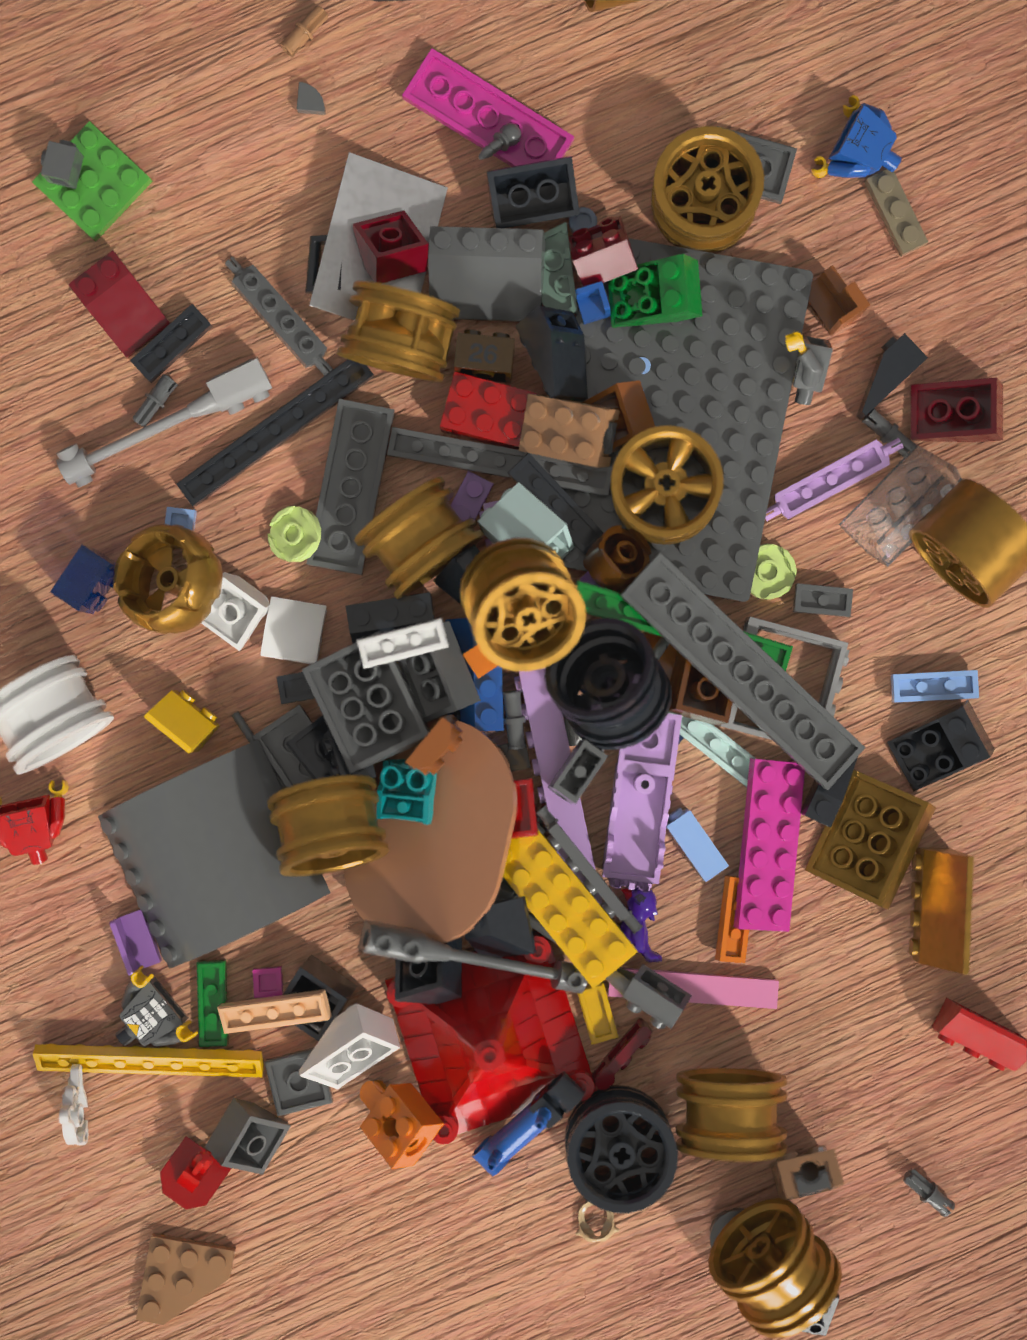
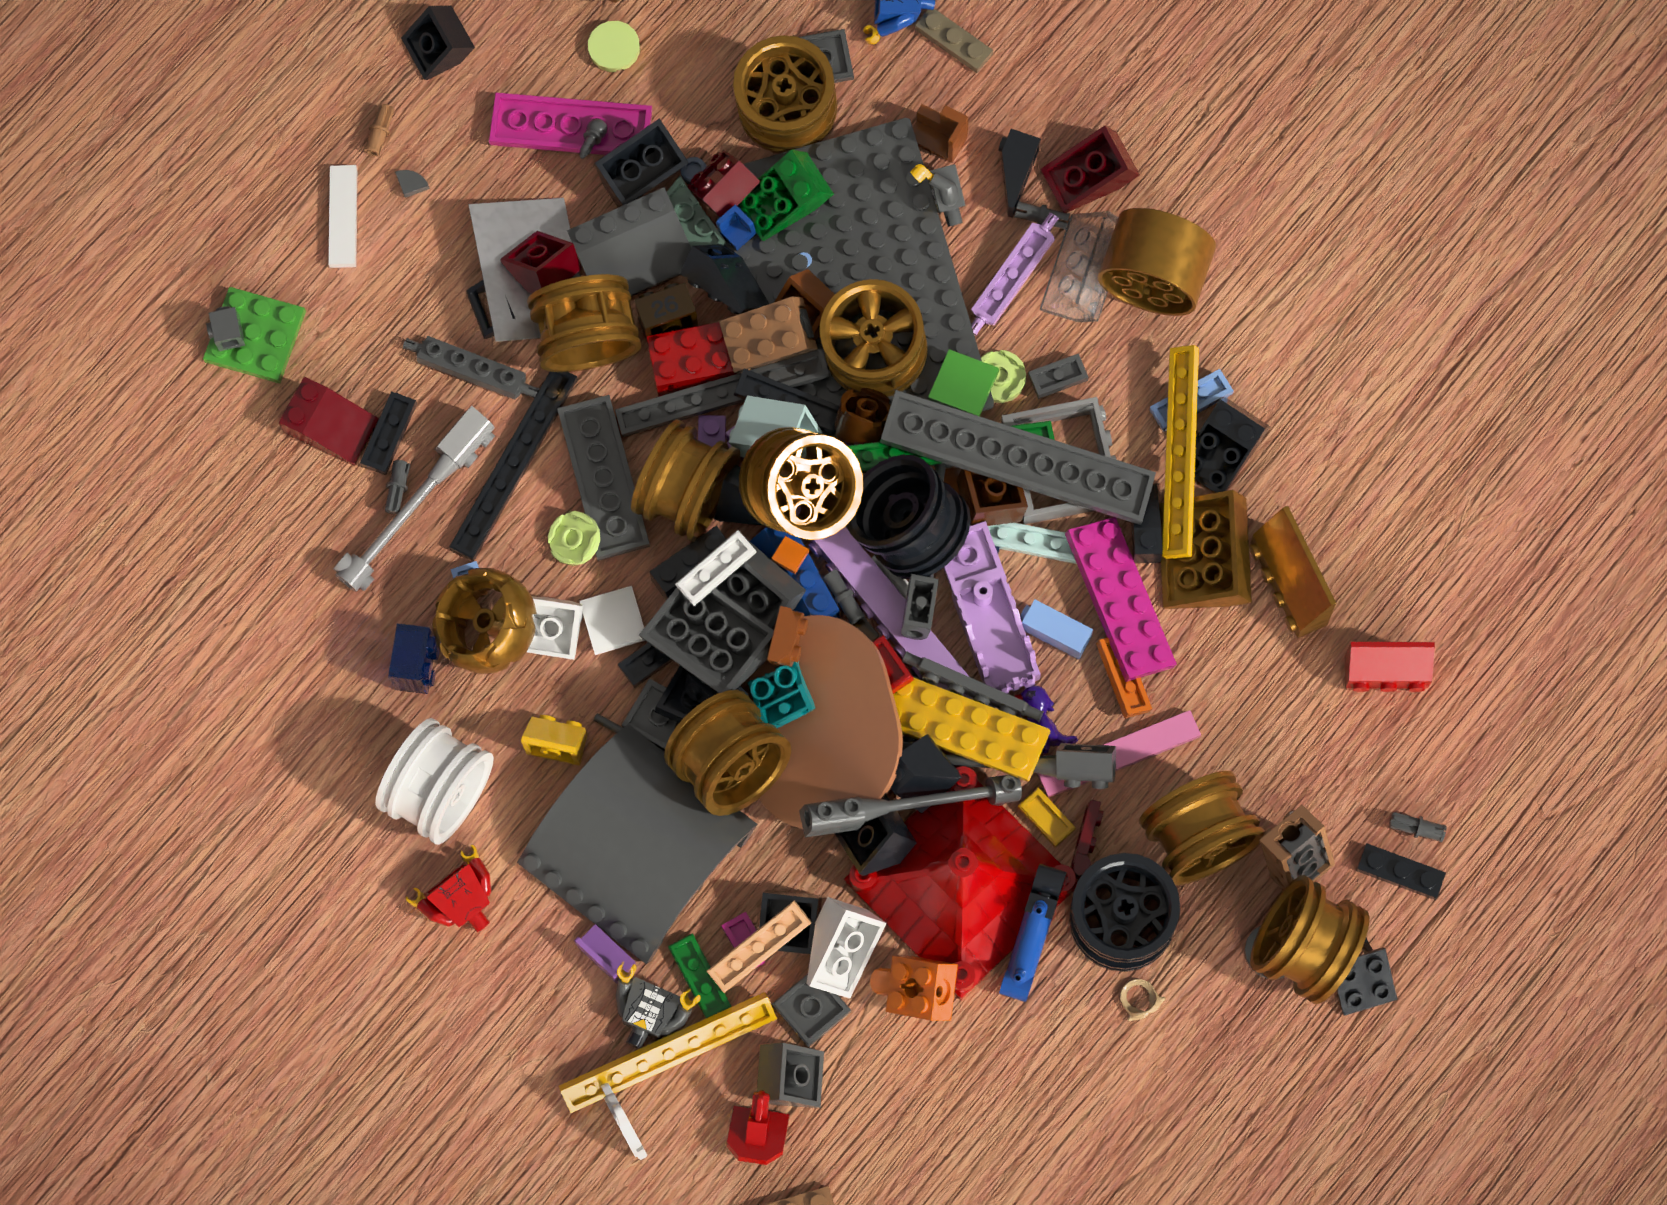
camera: 25 degrees left, 15 degrees down
(229, 102) = (343, 216): none -> white tile
(568, 55) = (613, 46): none -> yellowish green tile
(730, 568) = (963, 383): none -> bright green tile
(891, 1223) = (1401, 871): none -> black plate
(899, 735) = (1180, 452): none -> yellow plate

